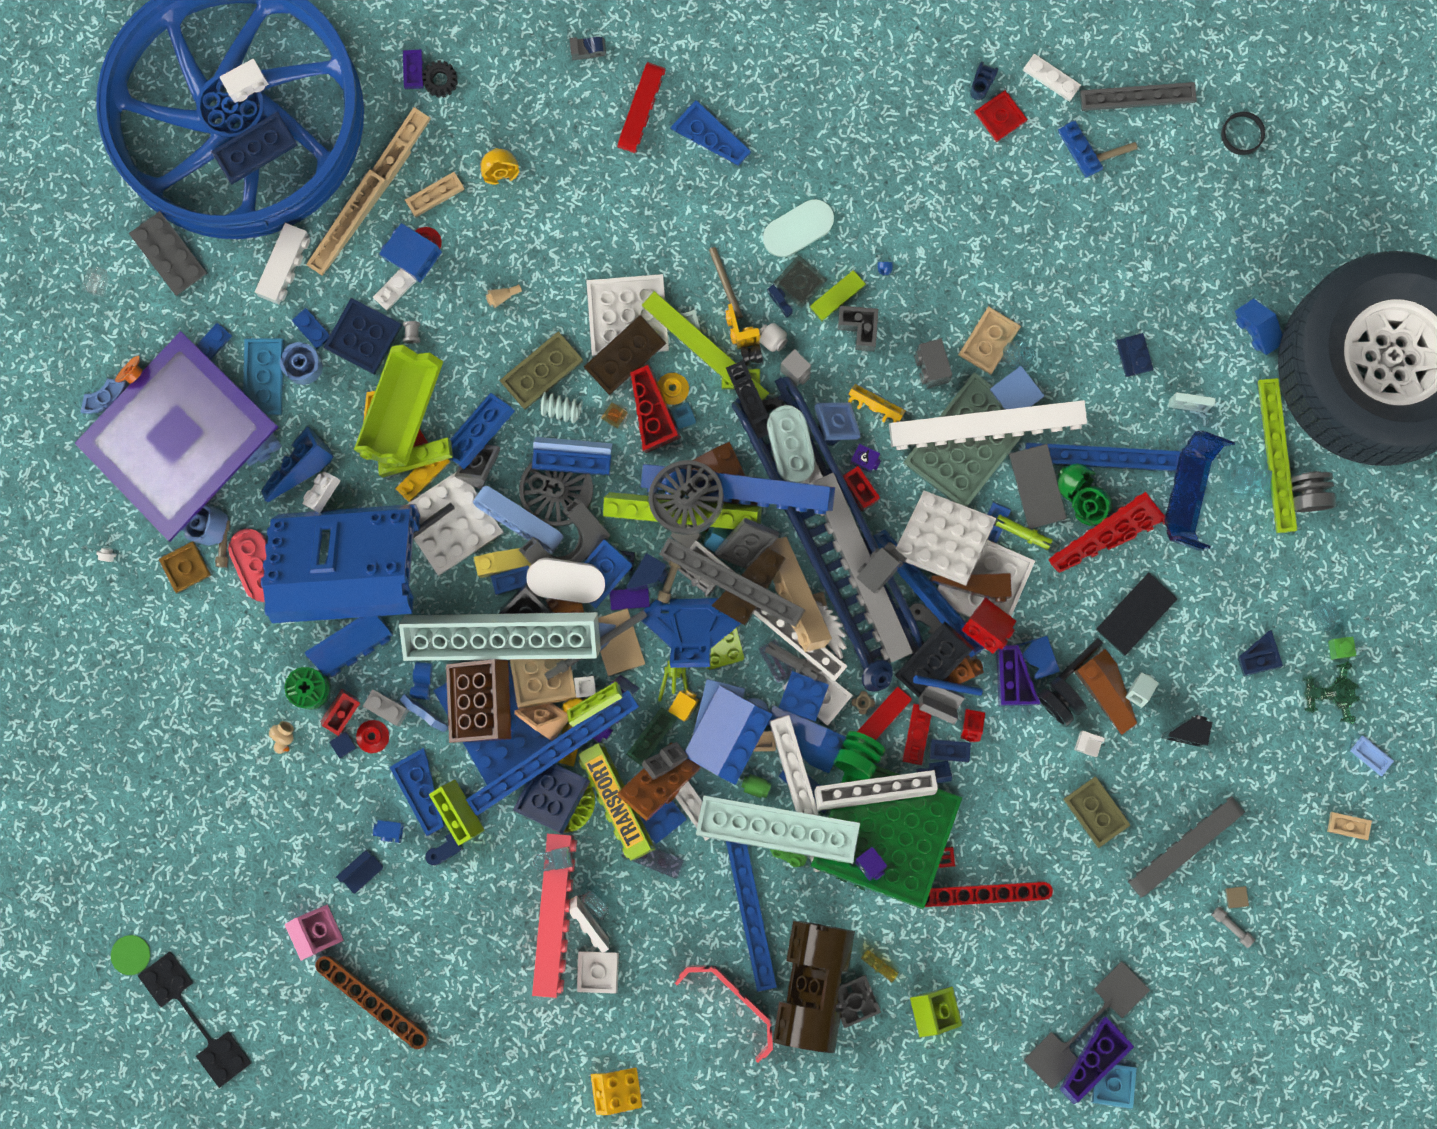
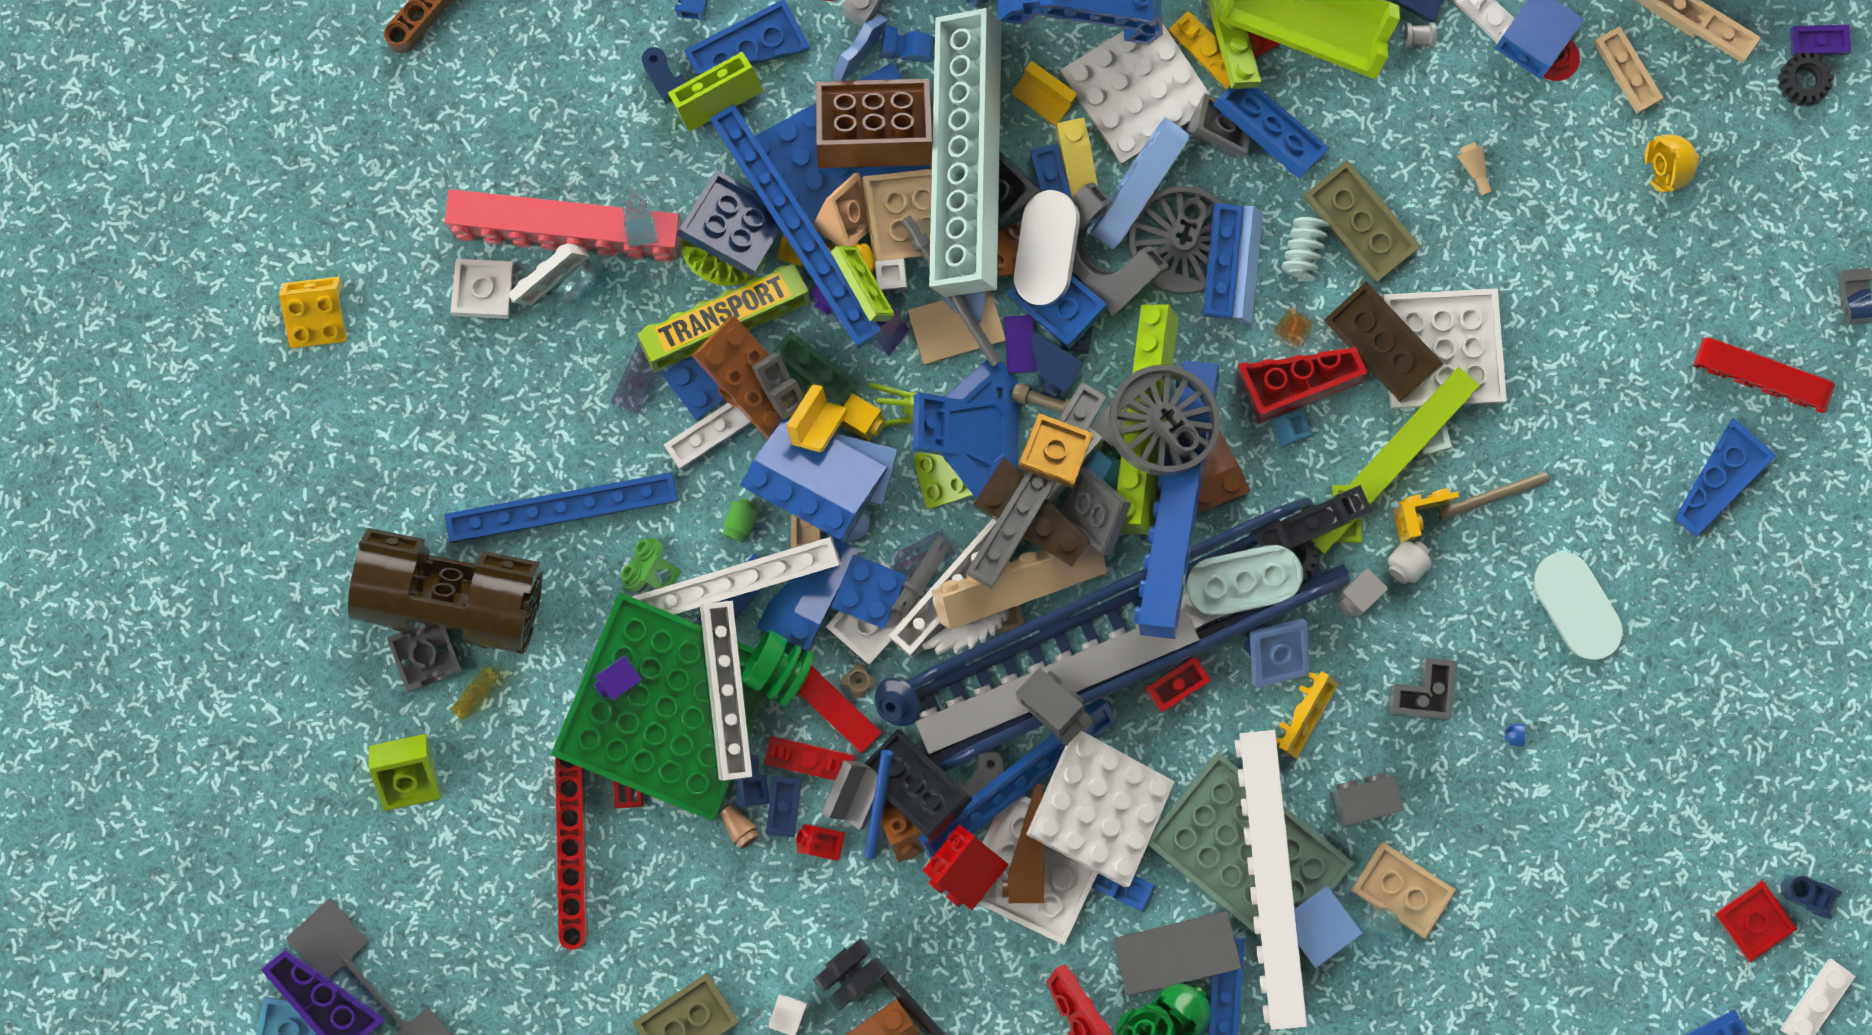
camera: 85 degrees right, 0 degrees up
(434, 518) = (1139, 60): black bar -> none
(455, 585) = (1044, 93): none -> yellow panel
(681, 391) = (1334, 426): yellow piece -> none
(689, 734) = (815, 421): none -> yellow panel
(702, 968) = (446, 481): coral windscreen -> none
(708, 570) = (1055, 450): none -> tile
(752, 354) = (1382, 529): black wheel -> none
(777, 296) = (1472, 571): dark blue plate -> none
(778, 829) = (673, 547): light aqua plate -> none
(800, 281) = (1495, 606): clear smoke tile -> none
(837, 295) = (1473, 661): lime tile -> none
(866, 458) = (1223, 695): dark purple brick -> none
(964, 780) = (739, 827): none -> medium nougat cone
(1013, 679) = (886, 904): dark purple wedge -> none
(1023, 532) = (1102, 940): lime pin -> none
(1041, 656) = (919, 947): blue piece -> none

